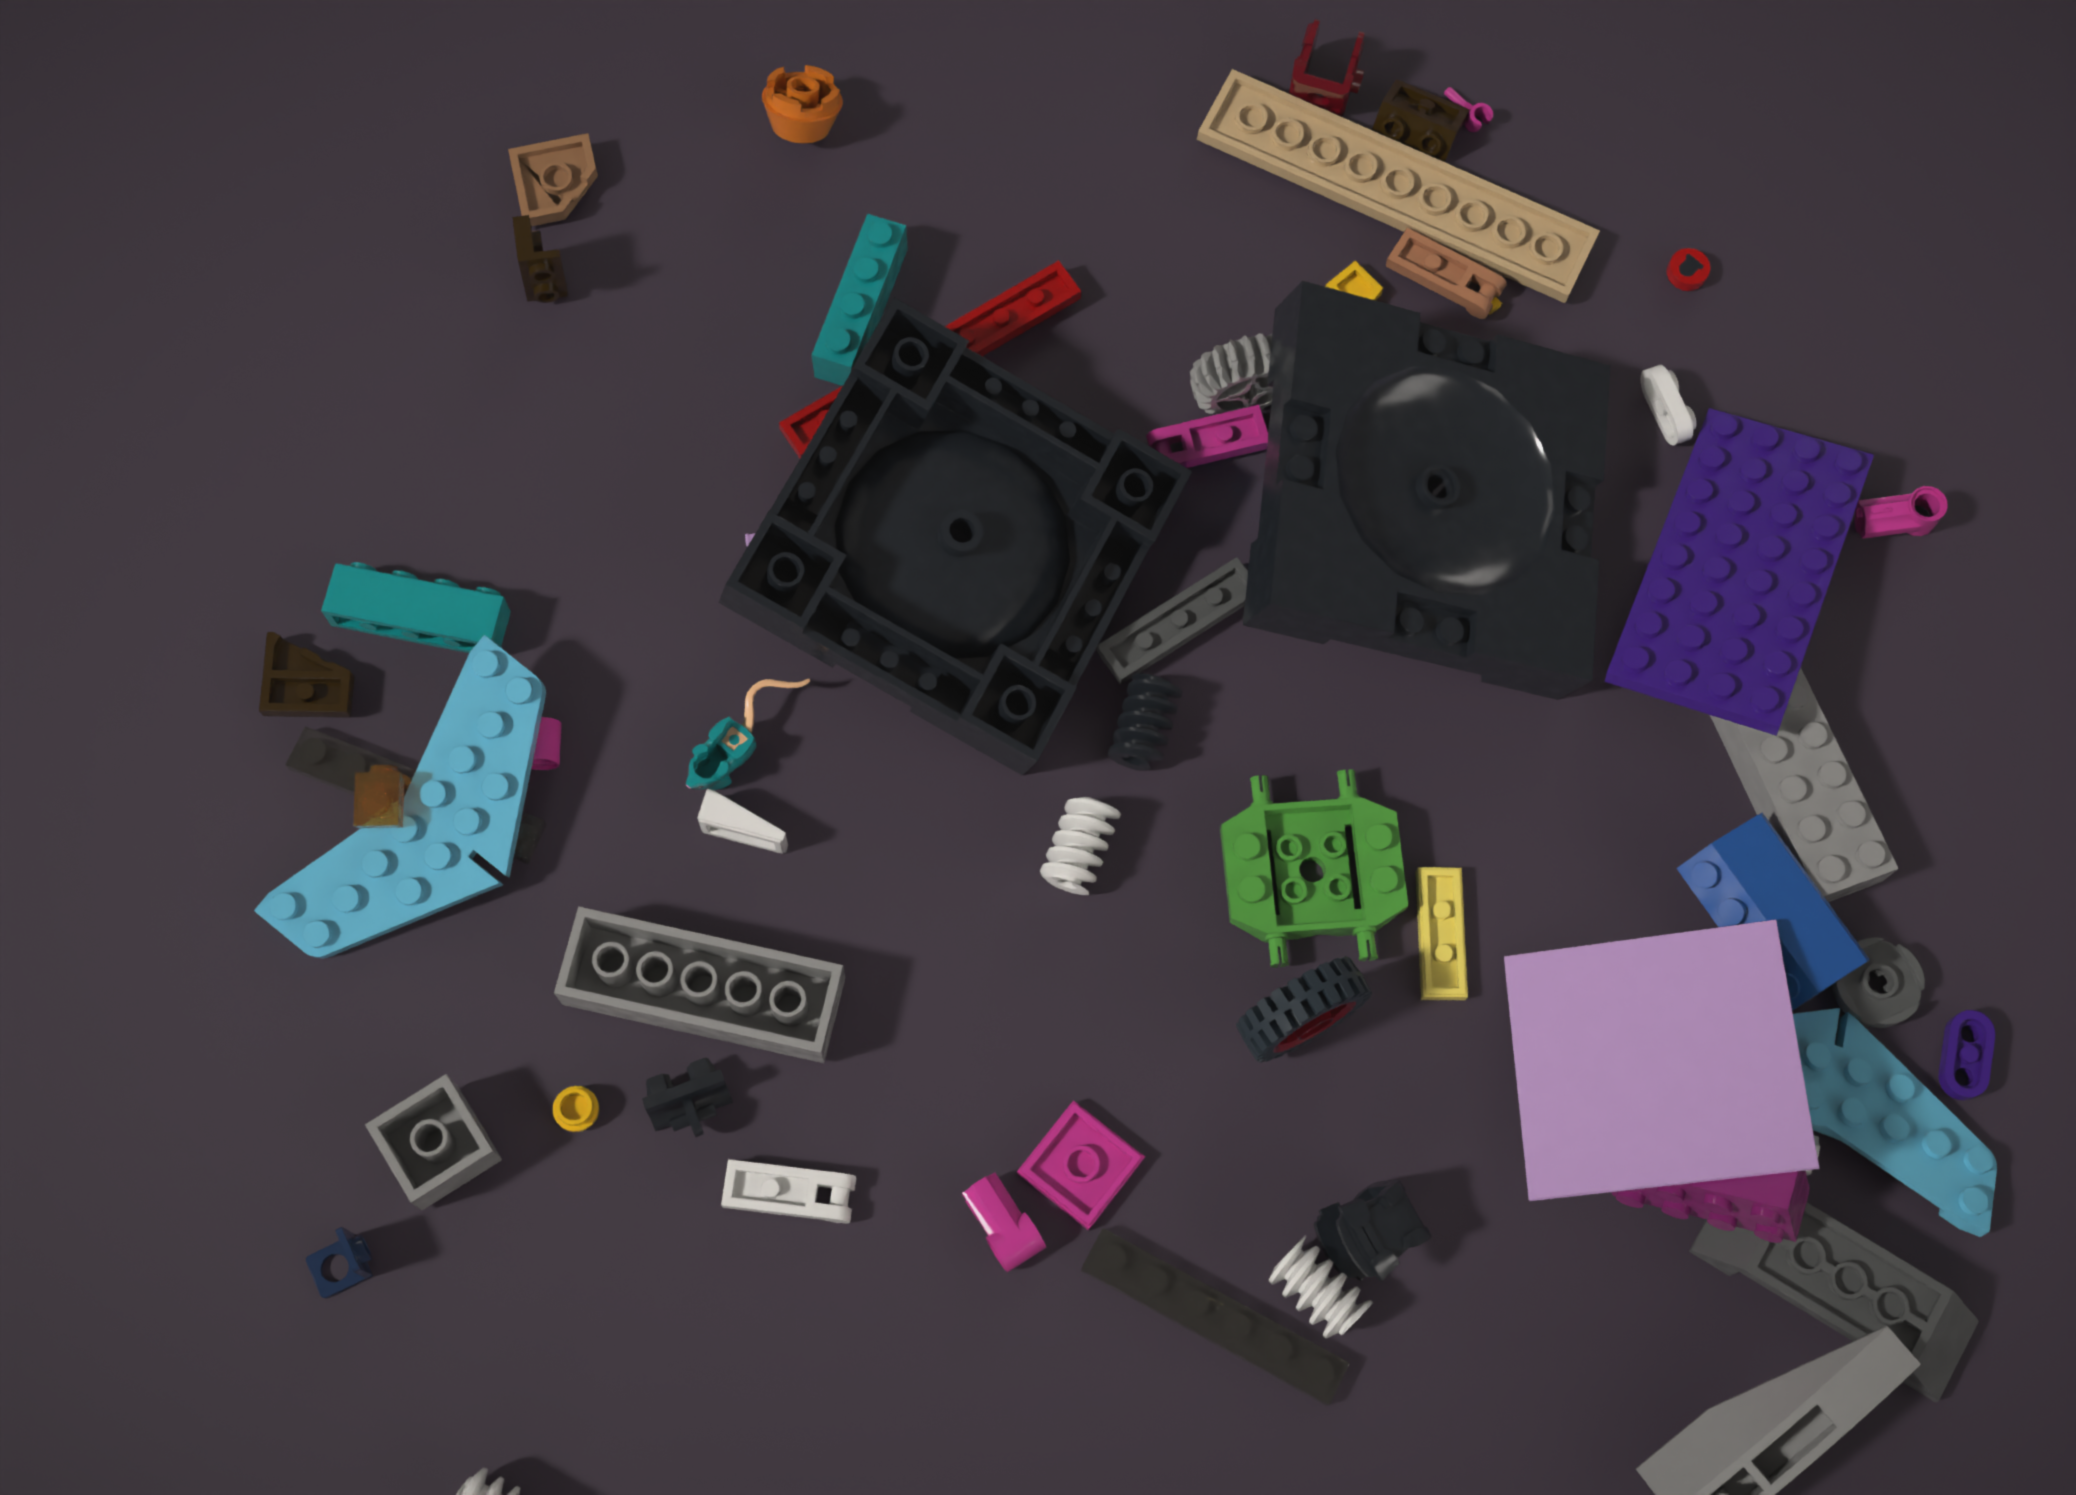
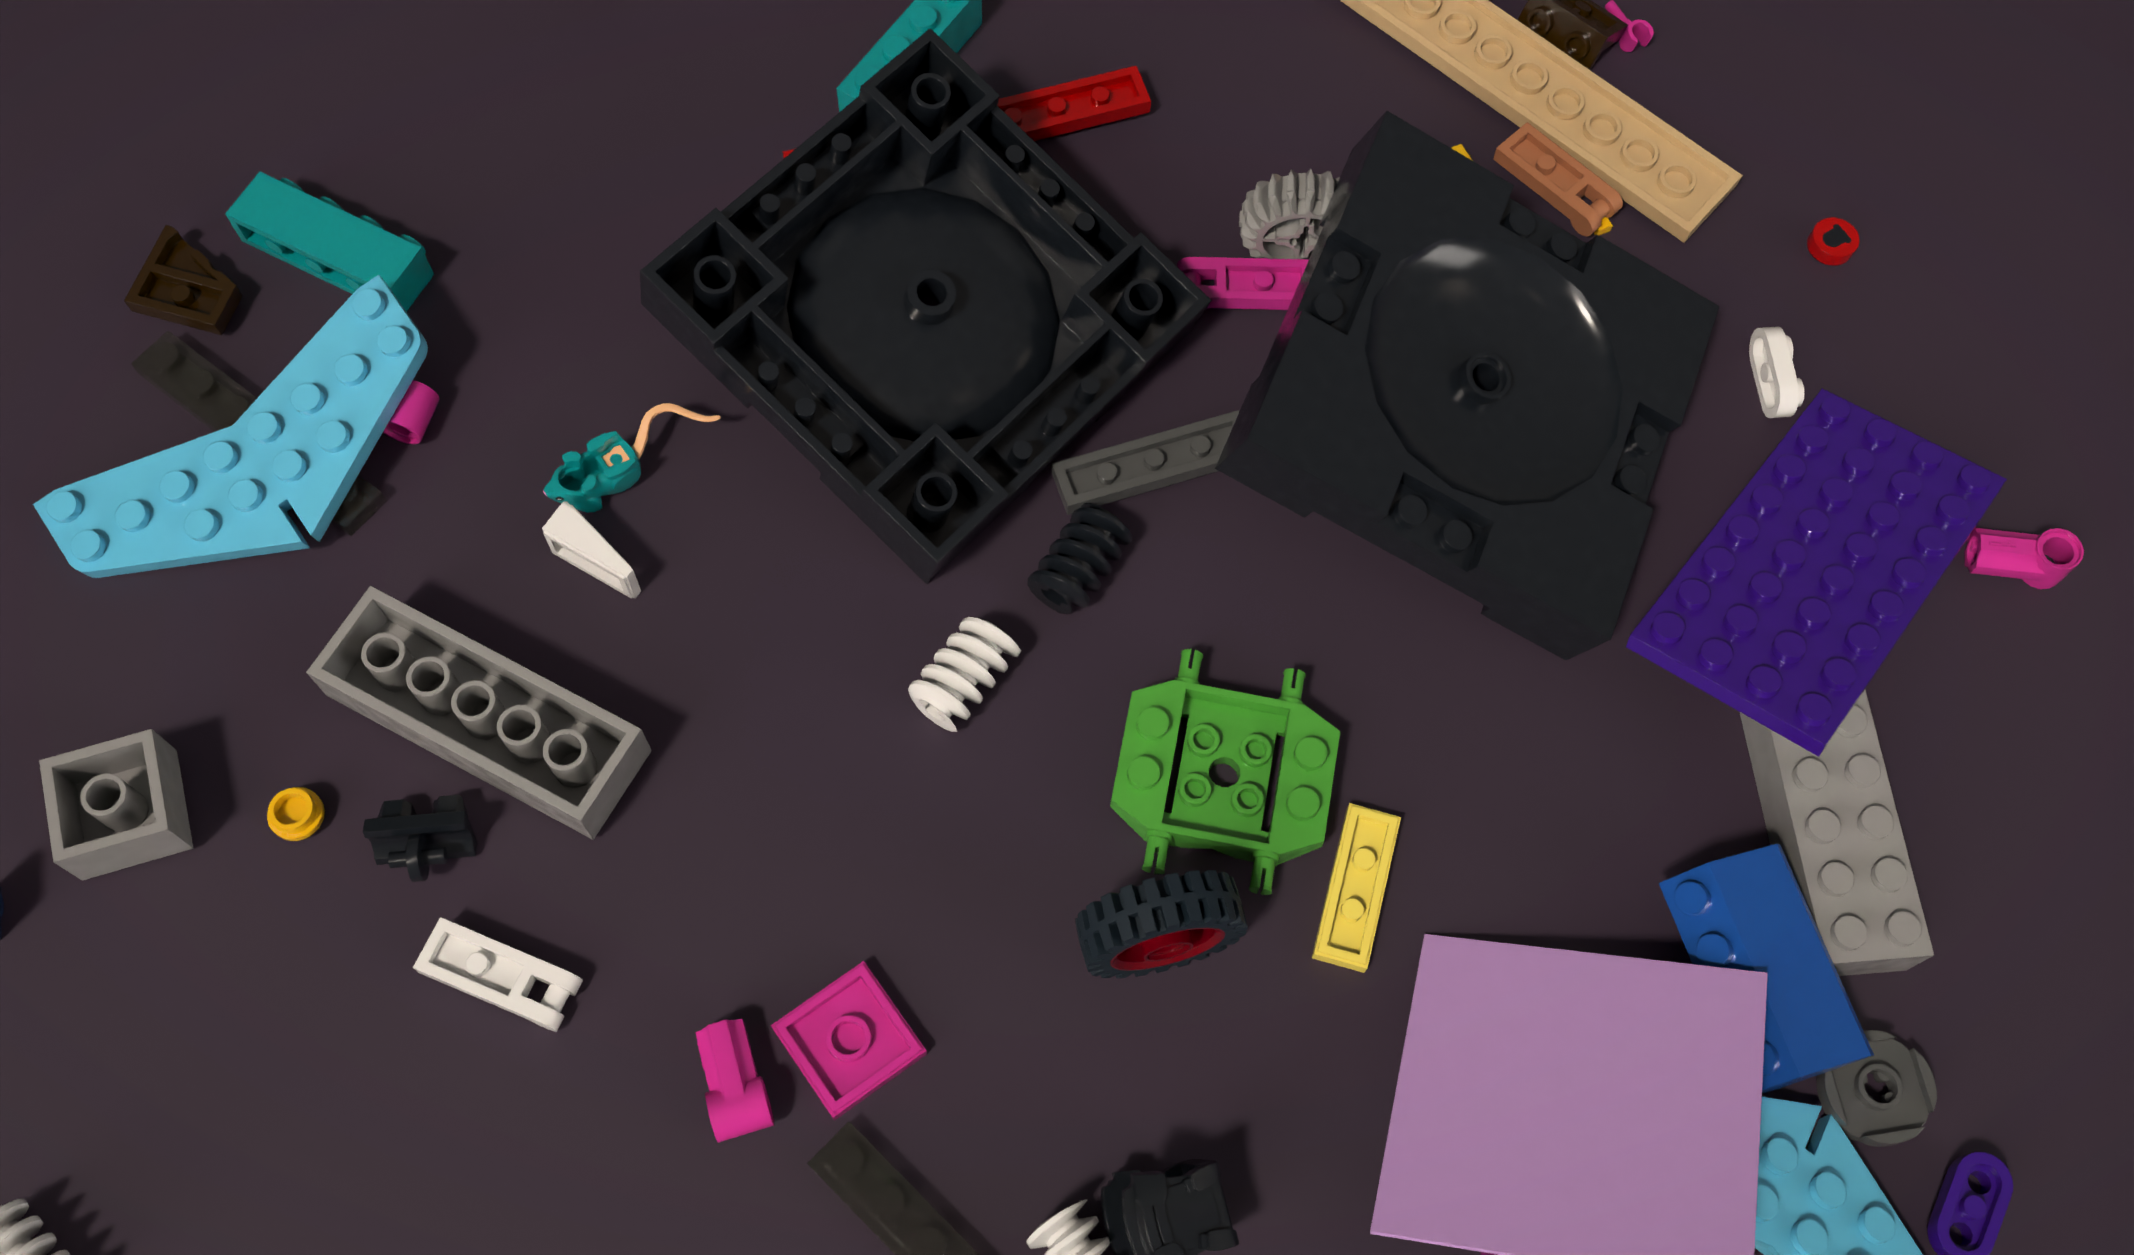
camera: 15 degrees right, 5 degrees down
(379, 797) = (203, 415): clear orange bracket -> none

